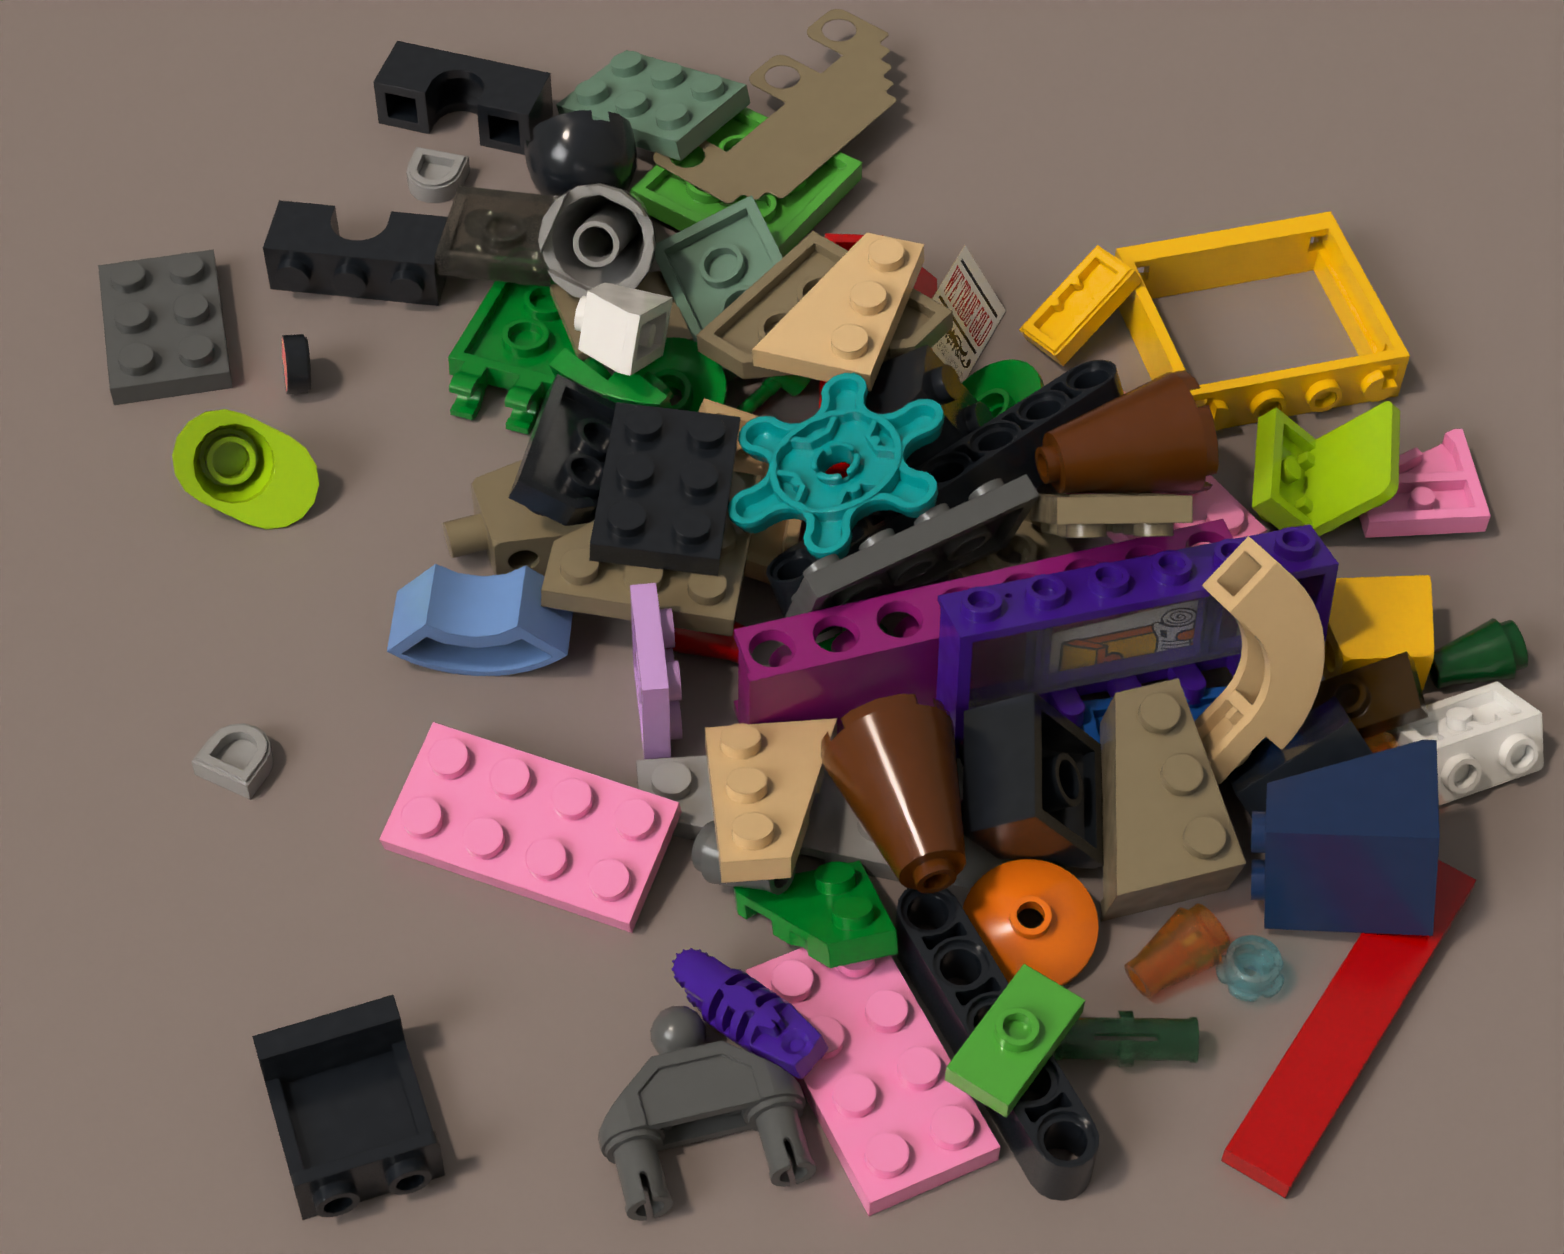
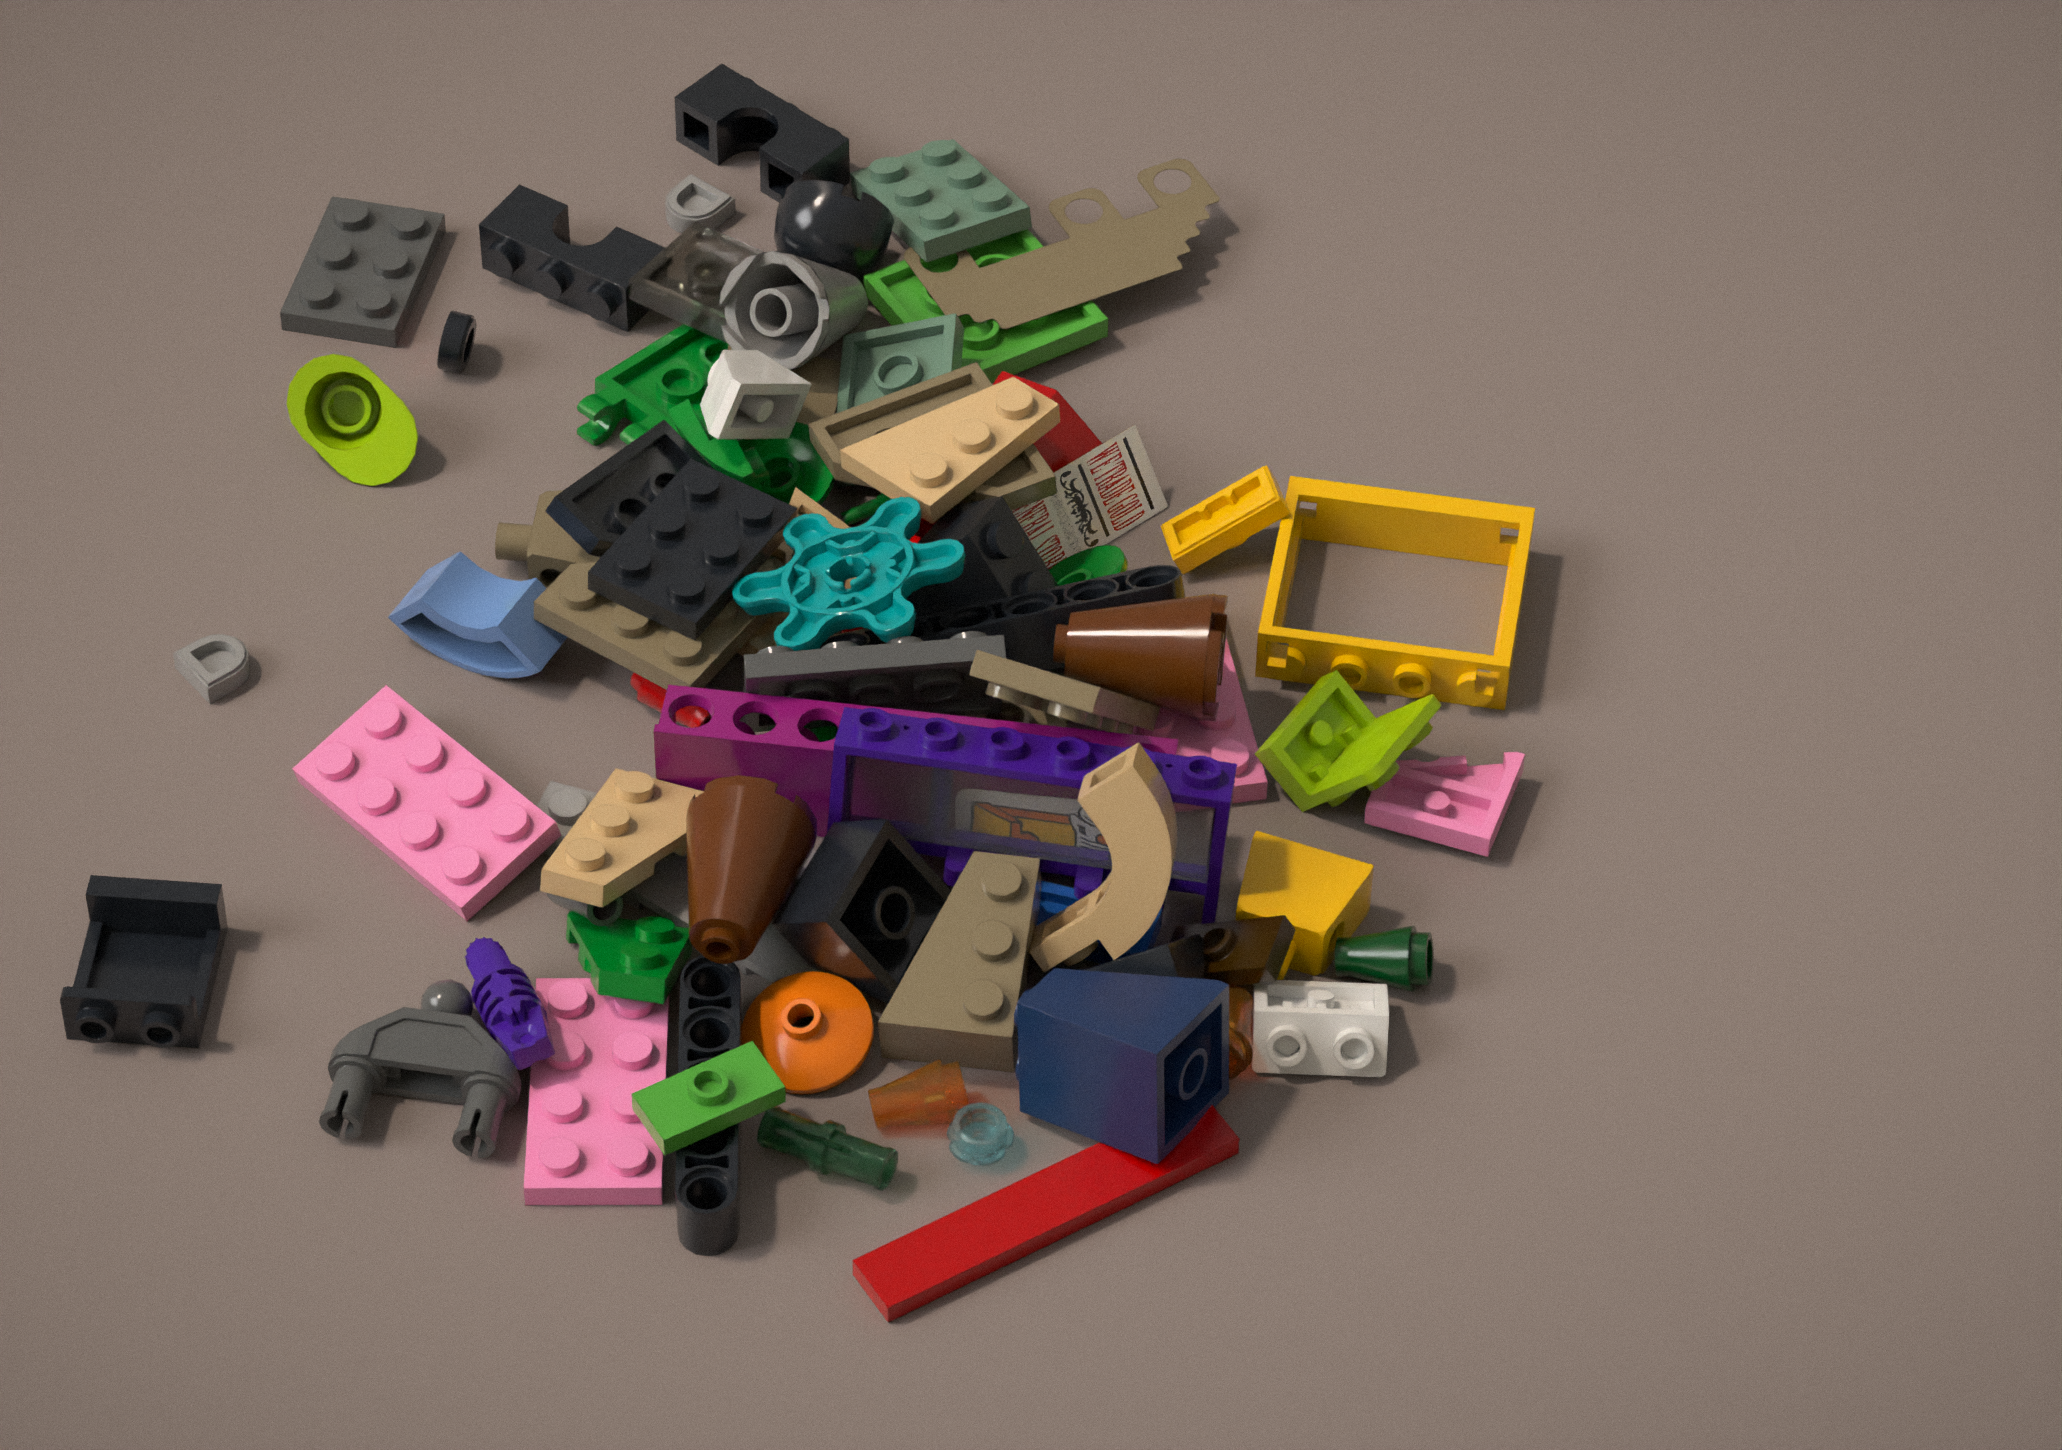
camera: 25 degrees right, 5 degrees down
(655, 672) = (596, 707): lavender plate -> none

